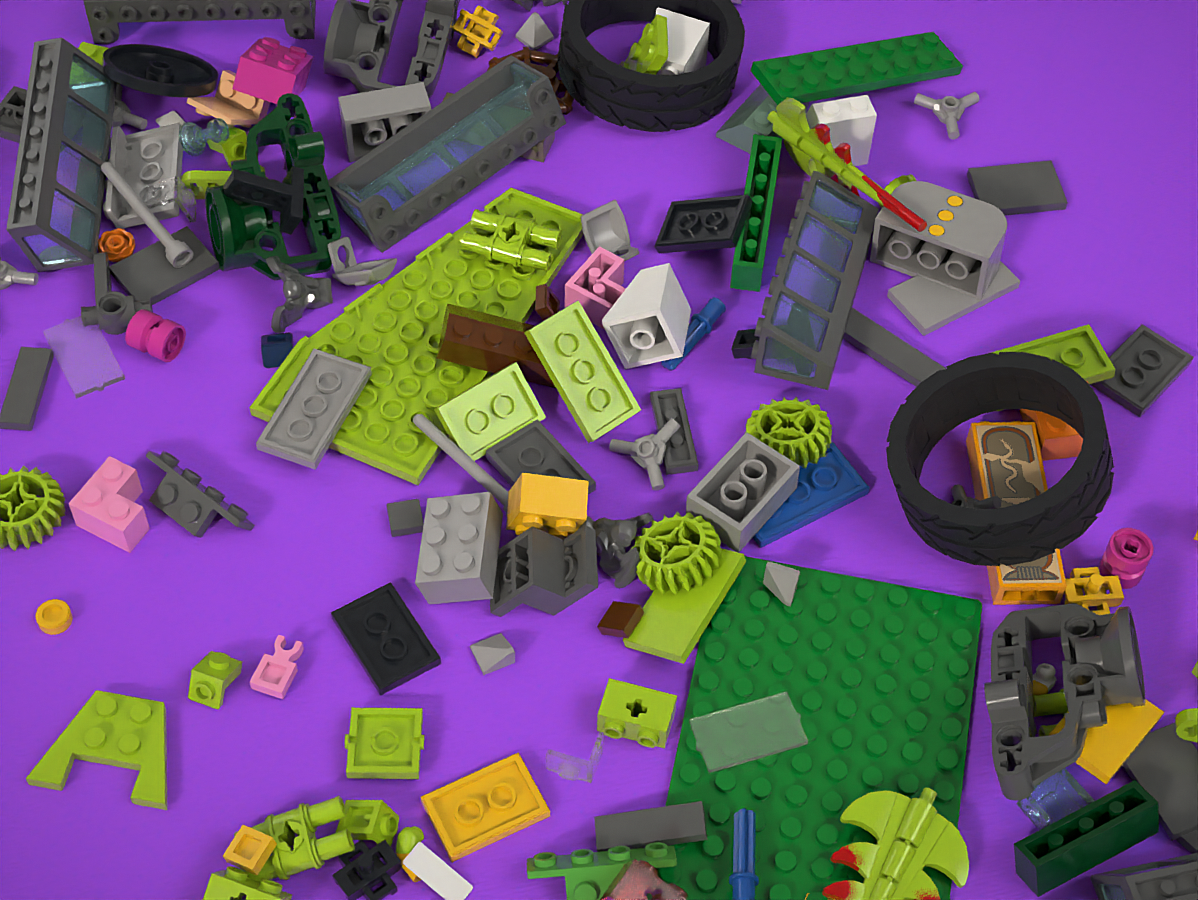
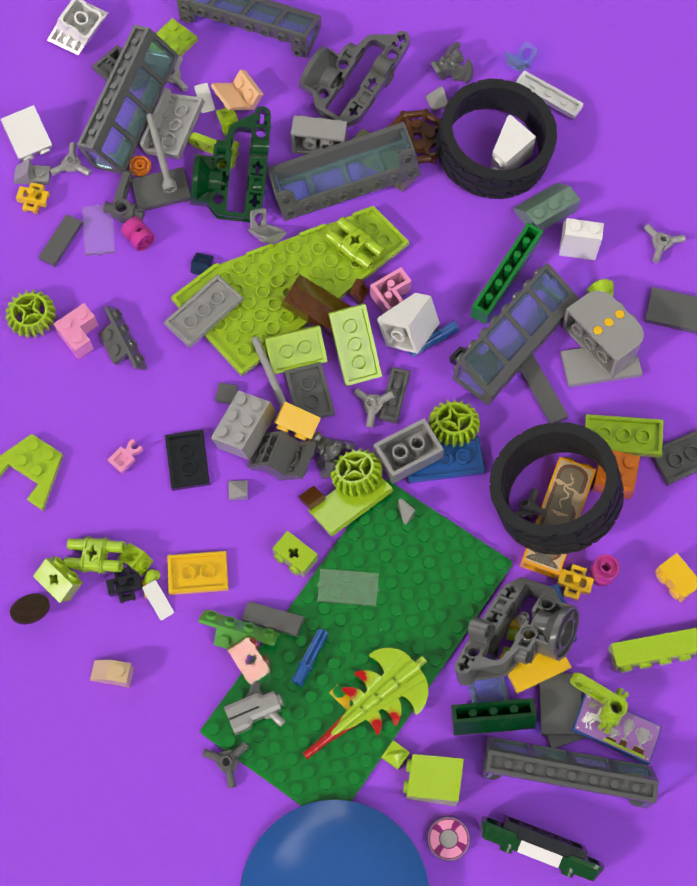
camera: 25 degrees right, 15 degrees up
(54, 616) = (27, 383): yellow tile -> none
(159, 70) = (204, 57): black dish -> none
(176, 192) = (184, 146): clear bracket -> none
(195, 138) = (208, 109): clear light blue piece -> none
(212, 677) = (91, 449): lime bracket -> none
(249, 850) = (69, 552): yellow plate -> none
(271, 194) = (229, 171): black bracket -> none
(272, 70) = (266, 82): dark pink brick -> none
(299, 292) = (222, 234): dark grey animal -> none
(384, 743) = (161, 519): lime plate -> none
(475, 33) = (403, 87): yellow piece -> none
(573, 767) = (248, 571): clear bracket -> none
(608, 229) = (414, 256): light grey piece -> none
(651, 50) = (487, 147): lime plate -> none
(703, 224) = (471, 271): black tile -> none
(815, 152) = (553, 238): lime animal -> none
(856, 68) = (616, 195): green plate -> none

